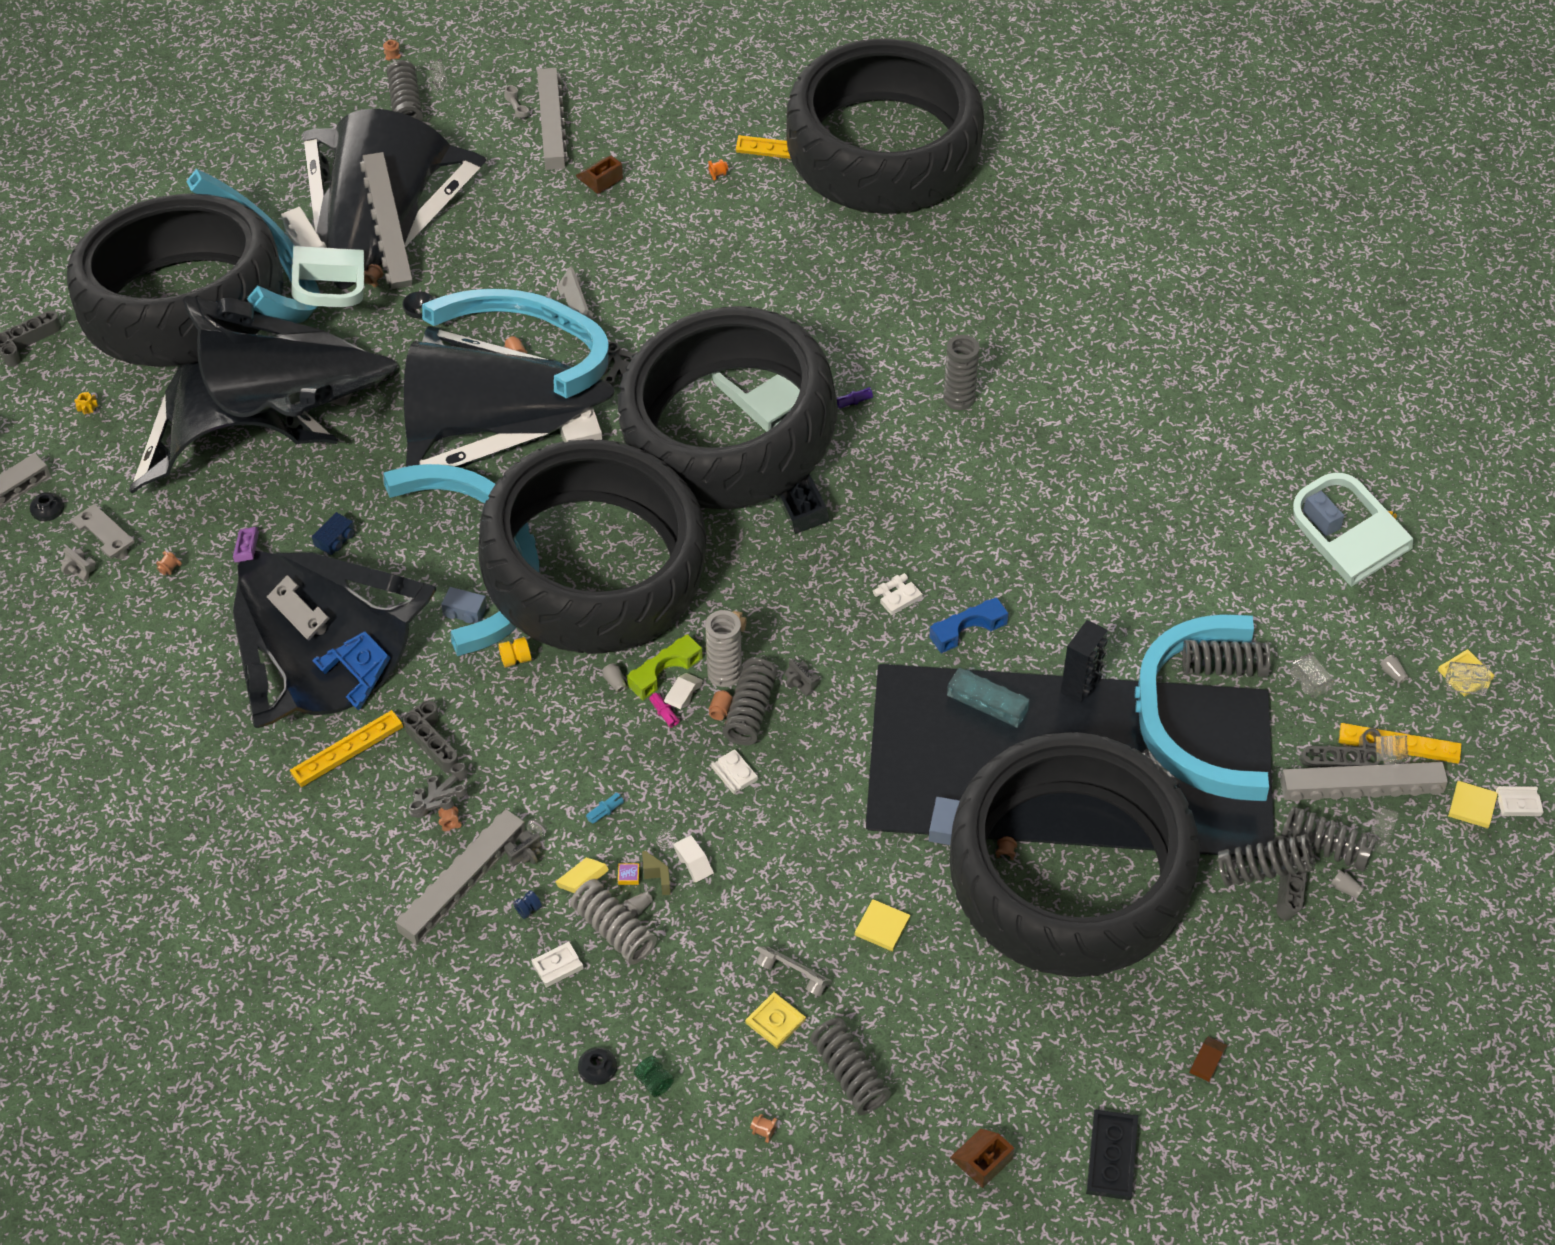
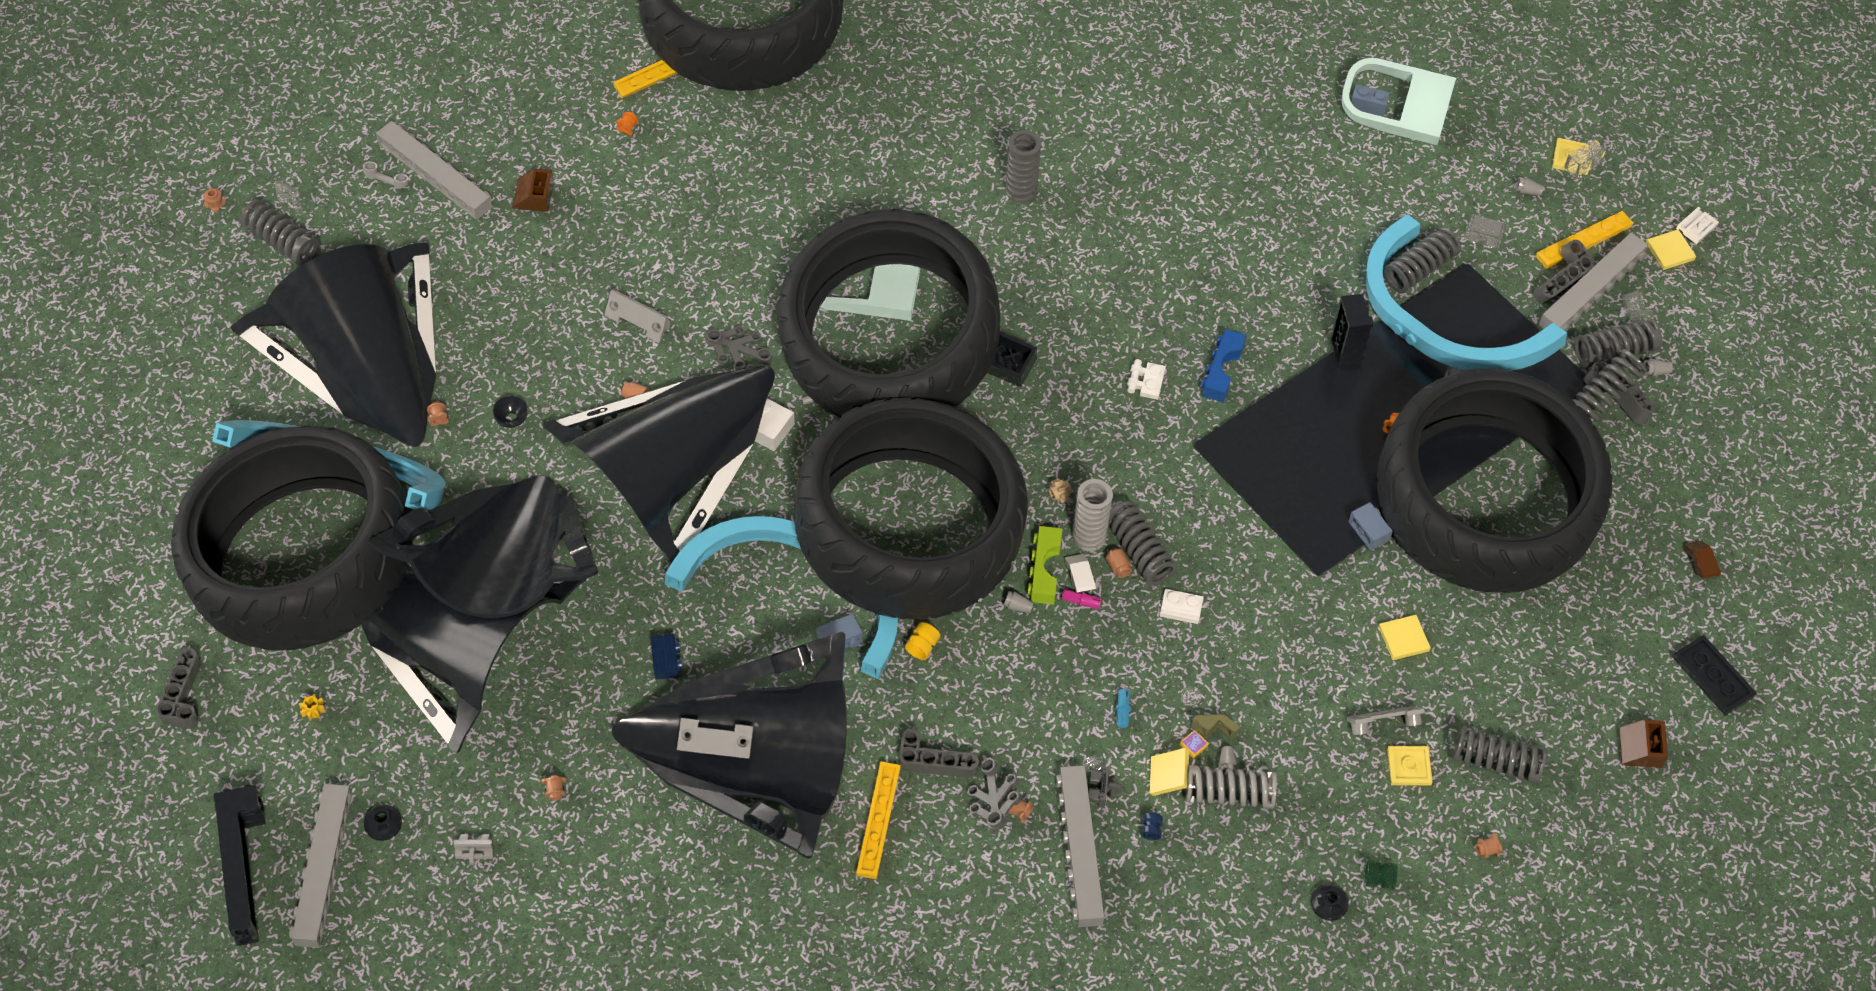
camera: 45 degrees left, 5 degrees up
(106, 530) = (466, 801): light grey brick -> none
(246, 544) = (605, 720): medium lavender tile -> none
(300, 230) = (341, 417): white wedge -> none
(327, 265) = (414, 425): light aqua window -> none
(363, 659) = (815, 738): blue wing -> none
(387, 220) = (413, 355): light grey brick -> none
(505, 300) = (643, 338): medium azure arch -> none
(557, 964) = (1222, 852): white plate -> none
(694, 858) = (1228, 692): white slope -> none
(798, 677) = (1151, 496): dark grey hips -> none
(988, 697) = (1302, 410): clear light blue brick -> none
(1391, 749) = (1596, 245): clear brick -> none

